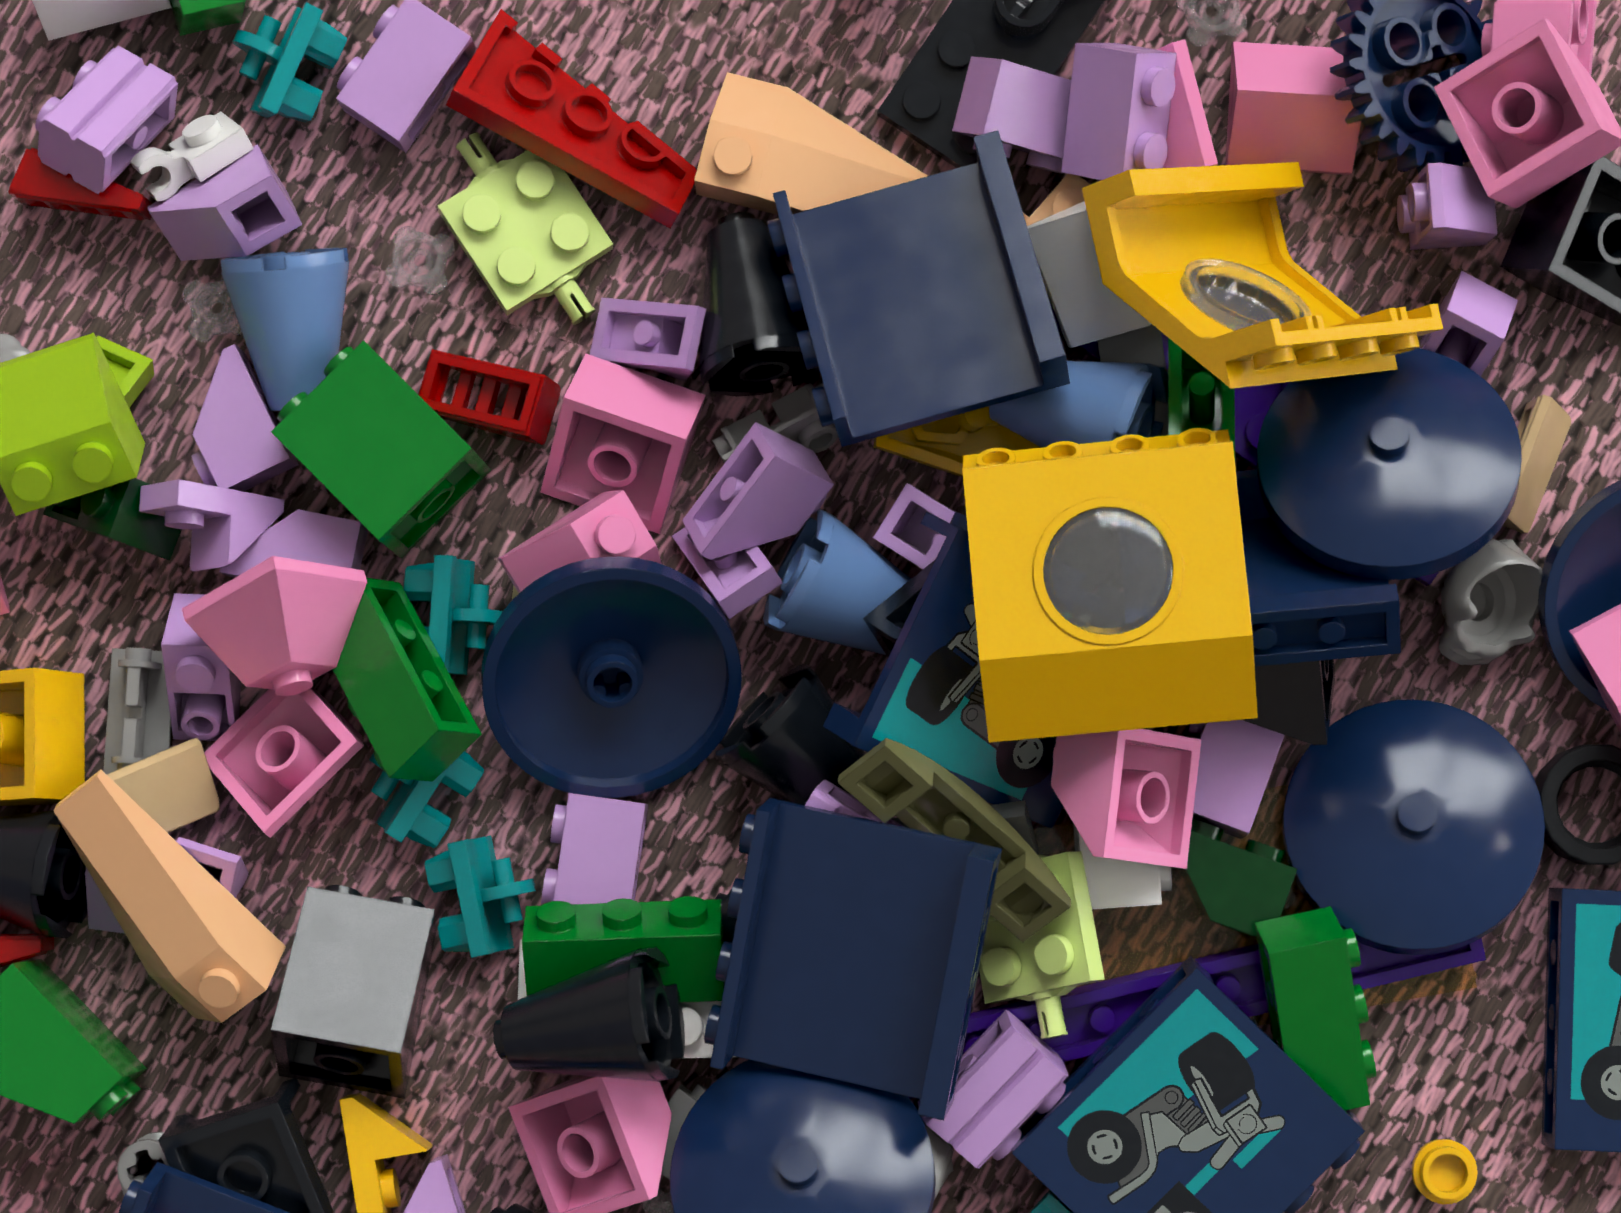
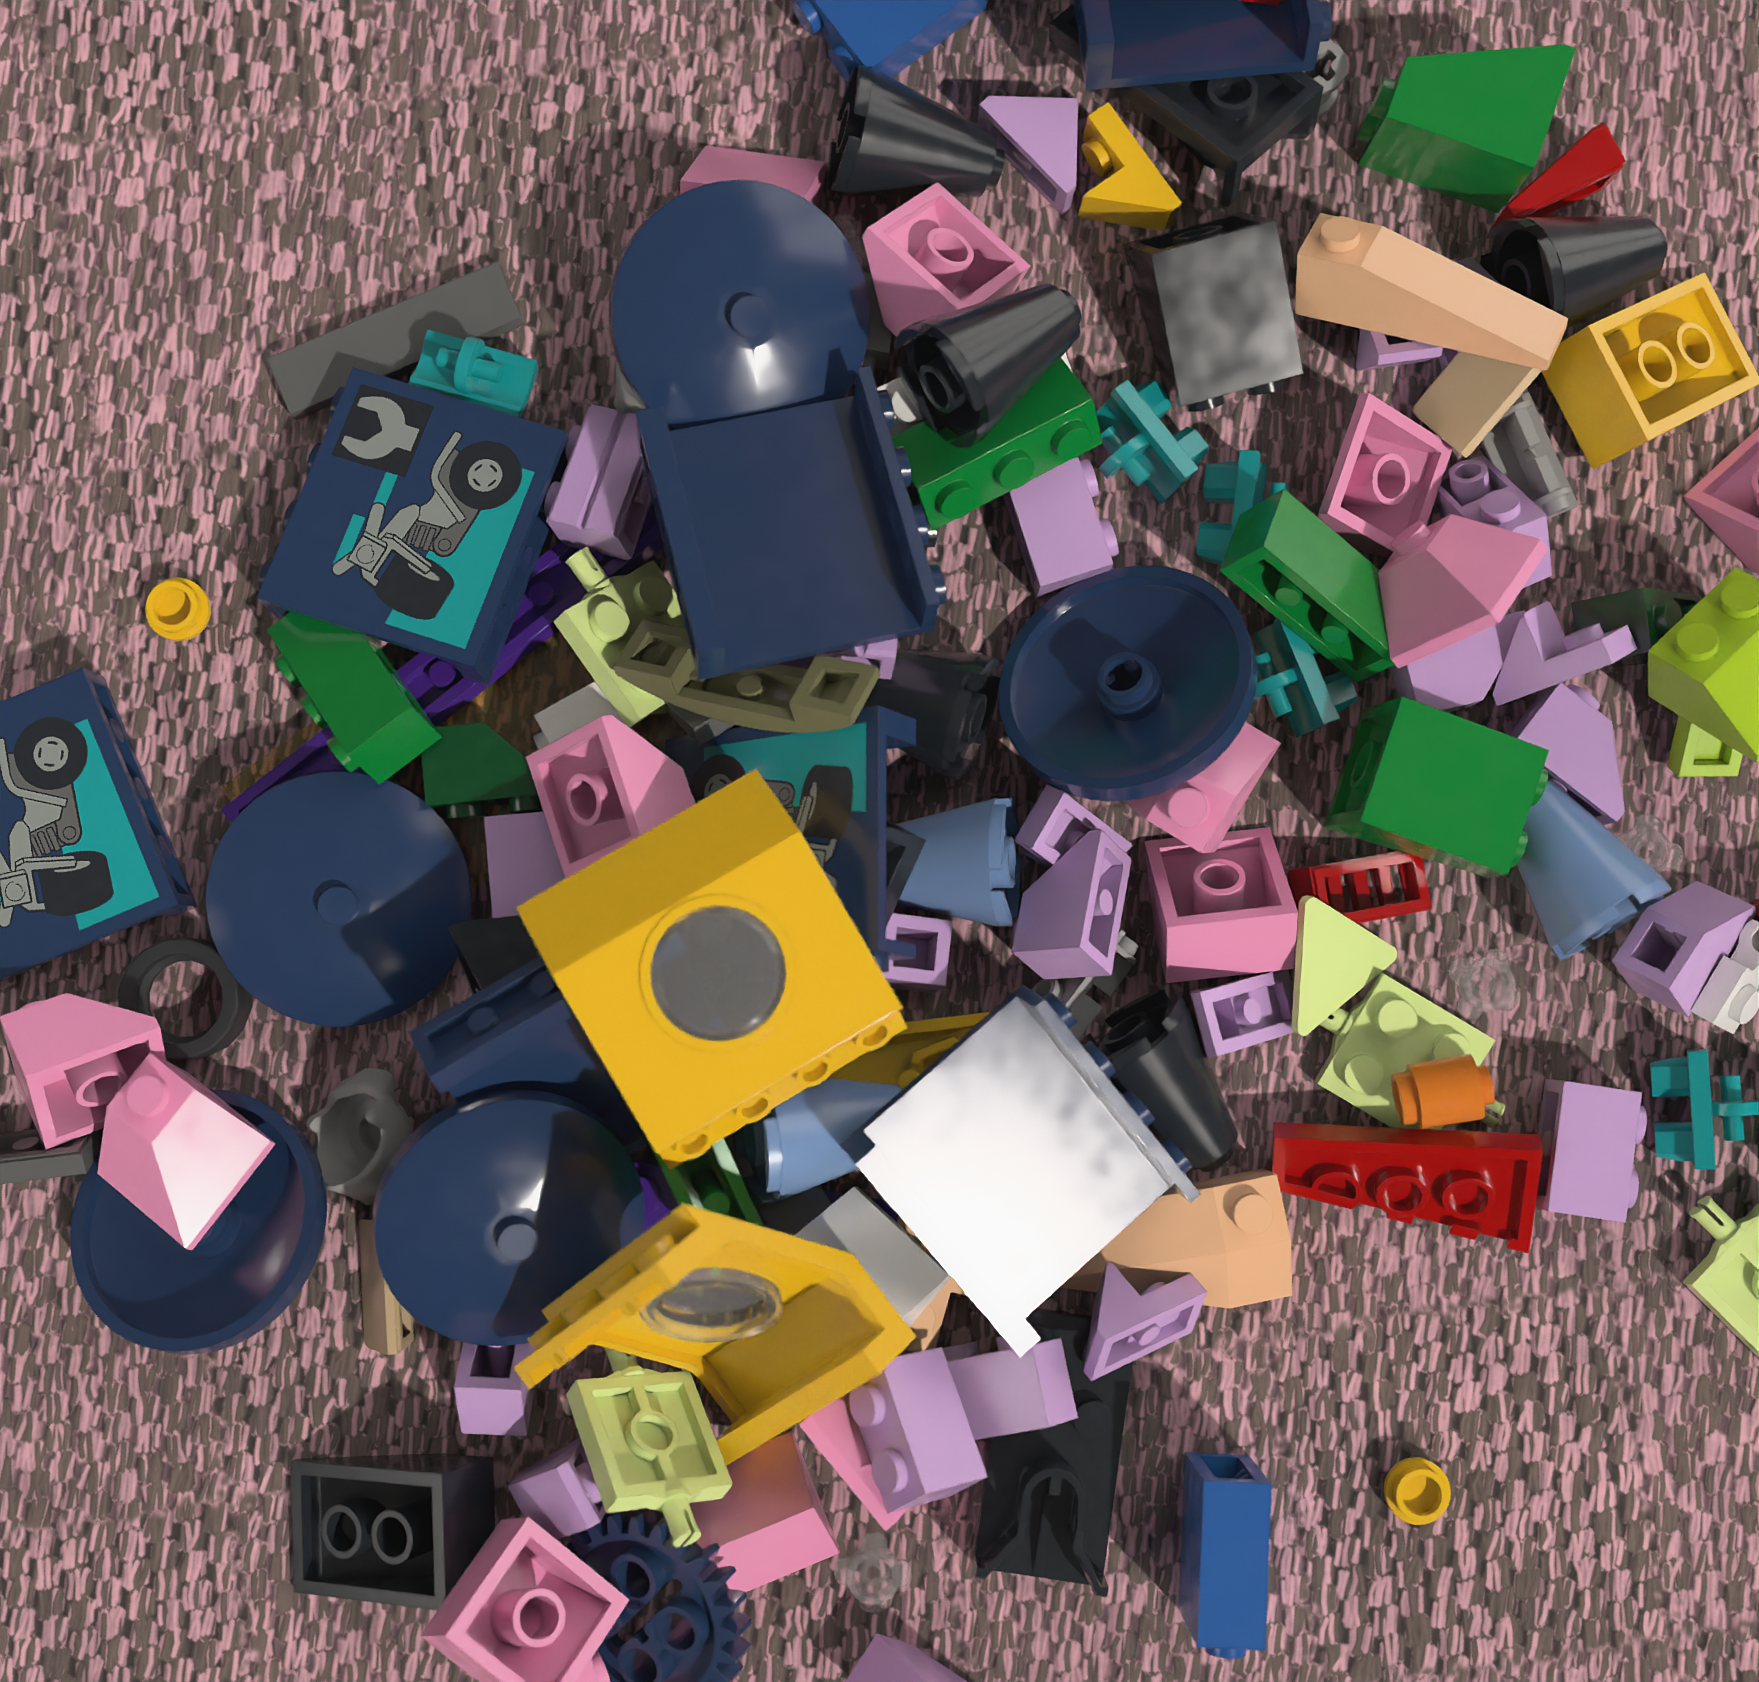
camera: 155 degrees right, 0 degrees up
(512, 181) = (1442, 1092): none -> orange brick
(550, 341) = (1331, 962): none -> yellowish green piece
(882, 110) = (1134, 1324): none -> lavender slope
(1355, 212) = (649, 1442): none -> yellowish green plate

